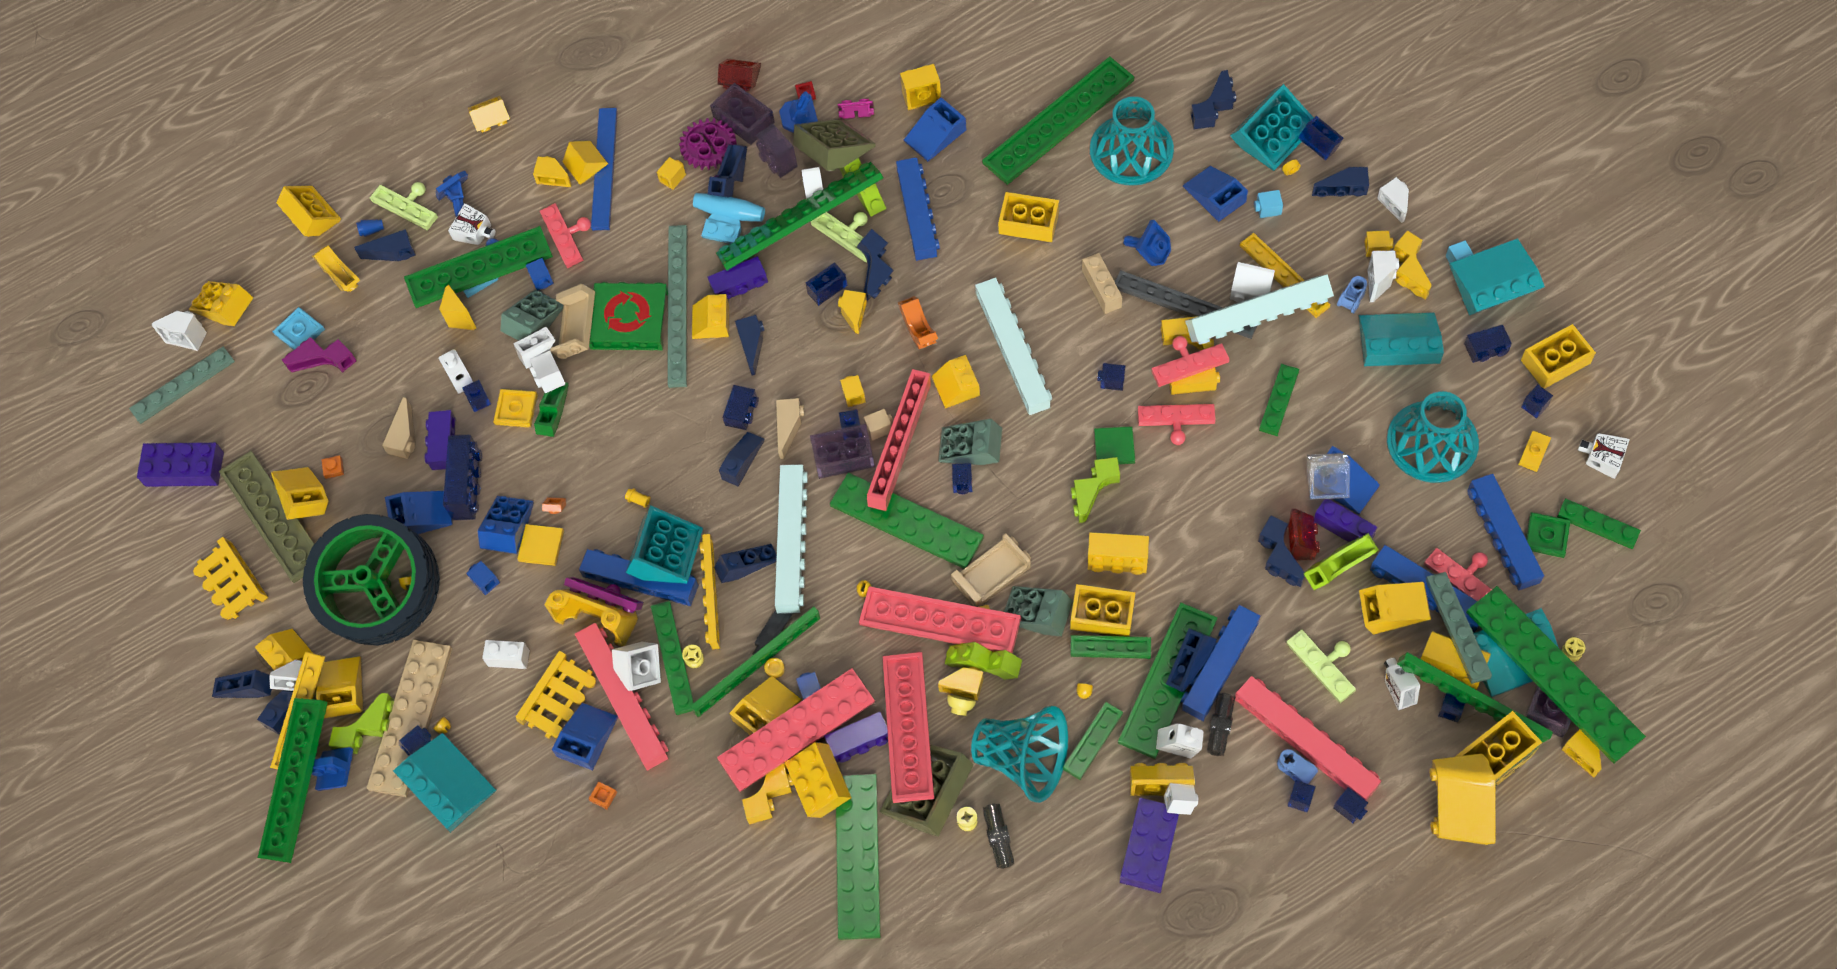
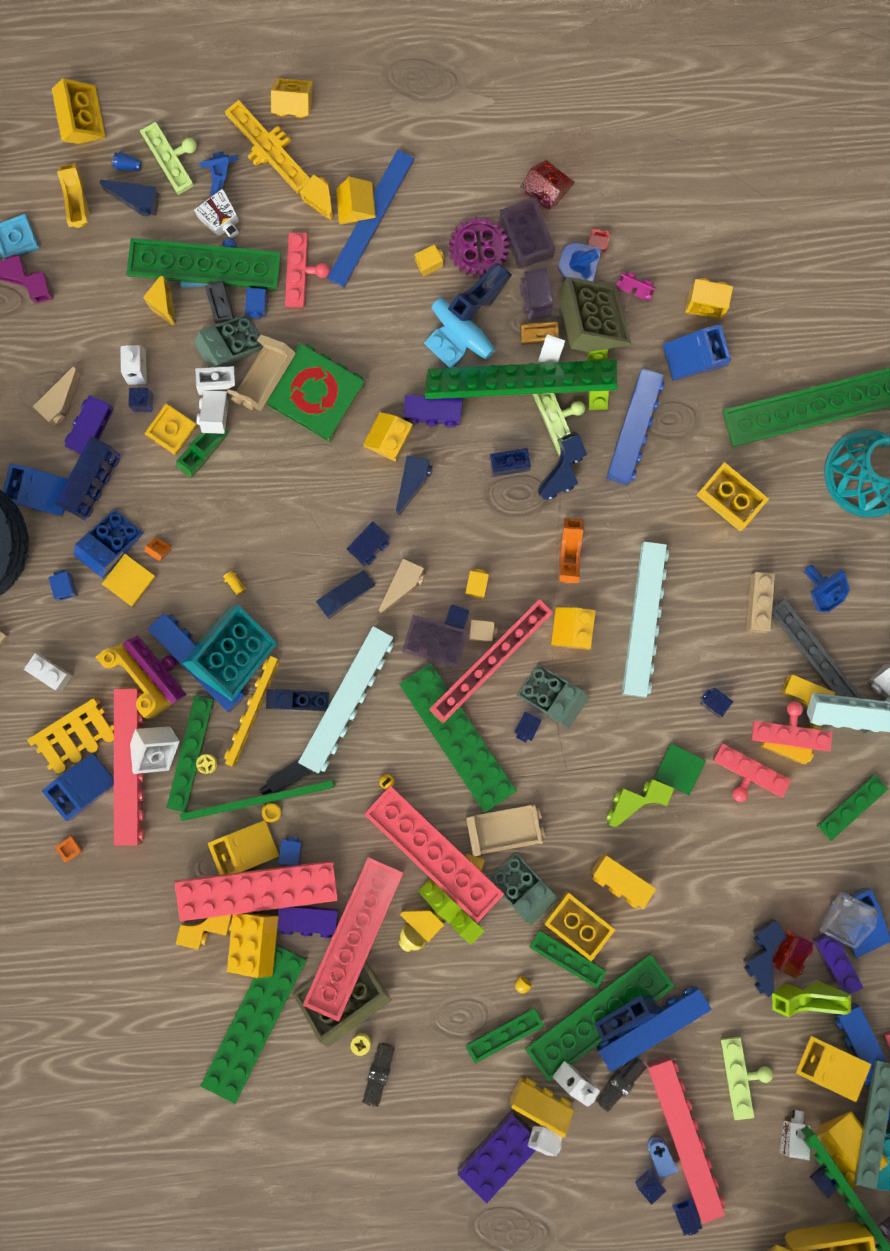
camera: 25 degrees right, 20 degrees up
(487, 157) = (267, 146): none -> yellow hinge
(506, 287) = (219, 301): none -> black plate
(677, 306) = (366, 404): sand green plate -> none
(792, 182) = (537, 332): none -> pearl gold plate
(853, 308) = (521, 499): yellow slope -> none
(1000, 759) = (439, 1004): teal piece -> none

